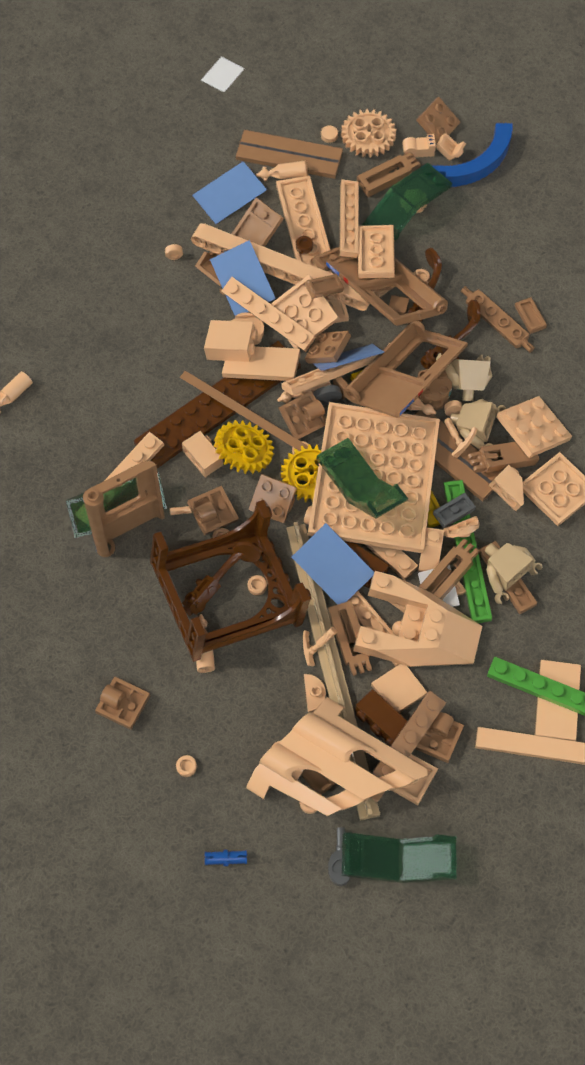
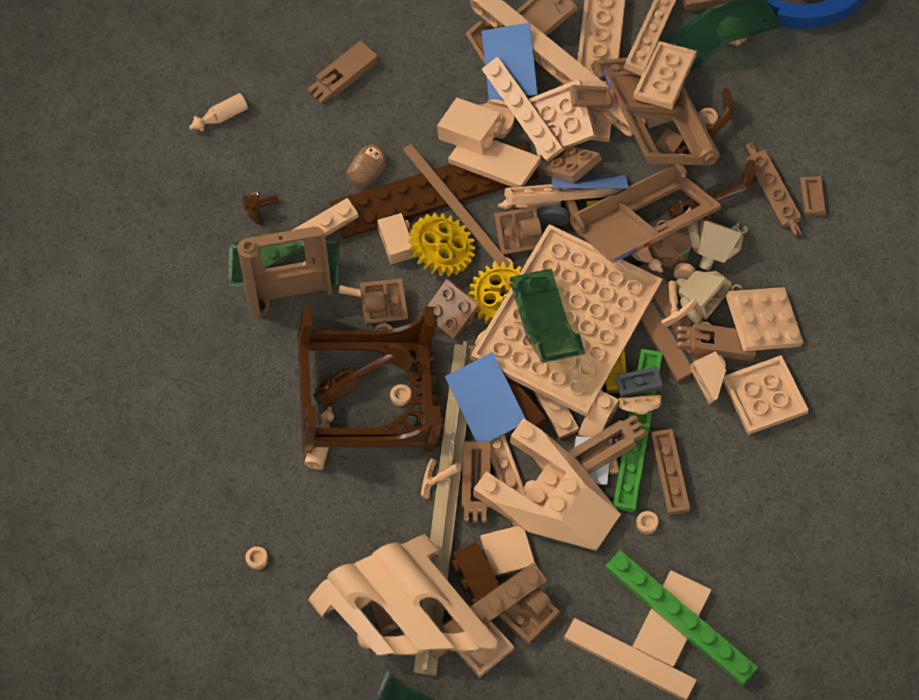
camera: 20 degrees right, 0 degrees up
(69, 459) = (253, 202): none -> reddish brown plant
(107, 320) = (349, 65): none -> medium nougat hinge
(122, 702) = (215, 471): medium nougat plate -> none
(153, 400) = (367, 166): none -> medium nougat piece
(174, 252) = (449, 11): light nougat tile -> none
(226, 857) = (261, 663): blue pin -> none
(304, 244) = (591, 44): reddish brown tile -> none
(314, 692) = (418, 523): light nougat plate -> none
(505, 626) = (647, 522): none -> light nougat tile
(508, 566) = (673, 459): tan torso -> none

